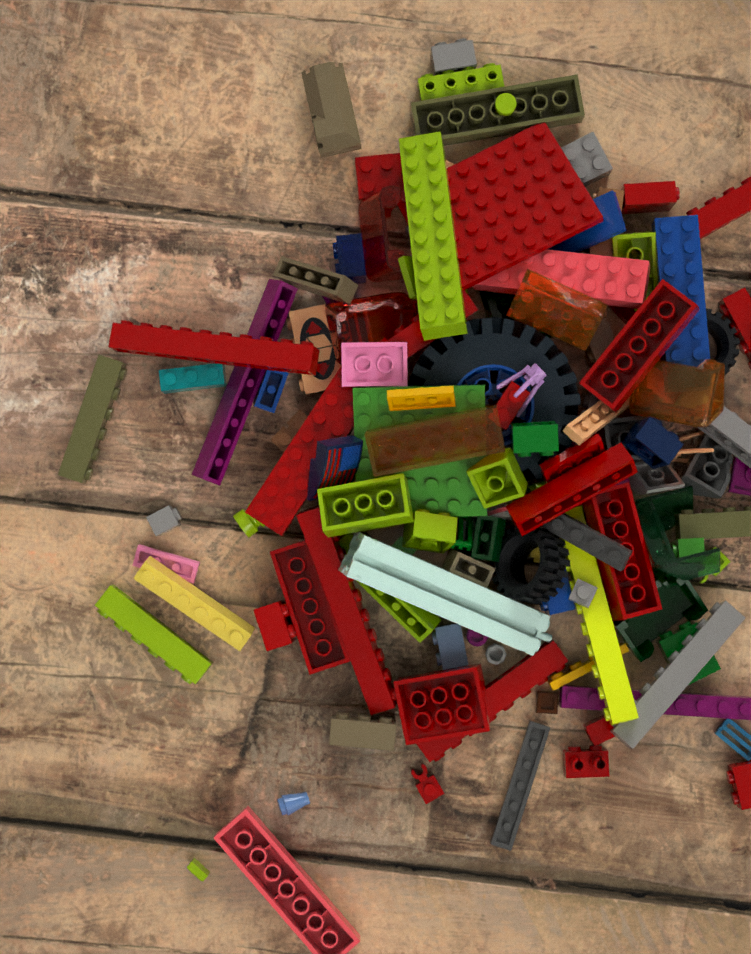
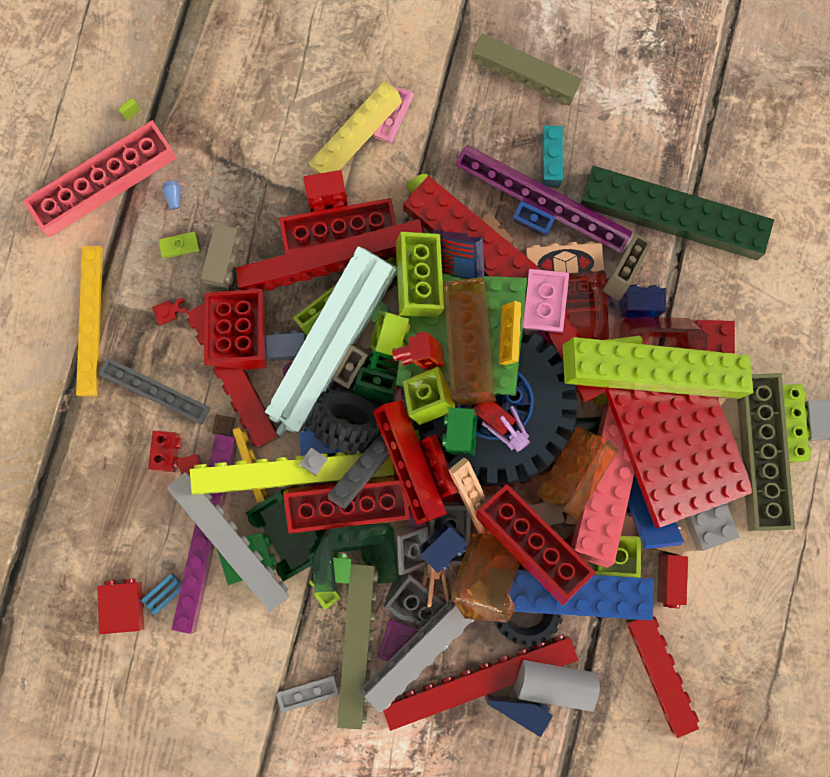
camera: 90 degrees right, 5 degrees down
(154, 634) = (334, 97): lime brick -> none
(164, 520) = (430, 117): light grey brick -> none
(214, 348) = (575, 174): red brick -> none
(241, 230) = (677, 213): none -> dark green brick
(331, 109) = (780, 302): dark tan brick -> none
(350, 785) = (179, 245): none -> lime plate
(450, 872) = (89, 321): none -> yellow plate
(453, 490) = (422, 350): none -> red brick
(495, 654) = (272, 384): light grey tile -> none
(505, 104) = (772, 458): lime tile -> none

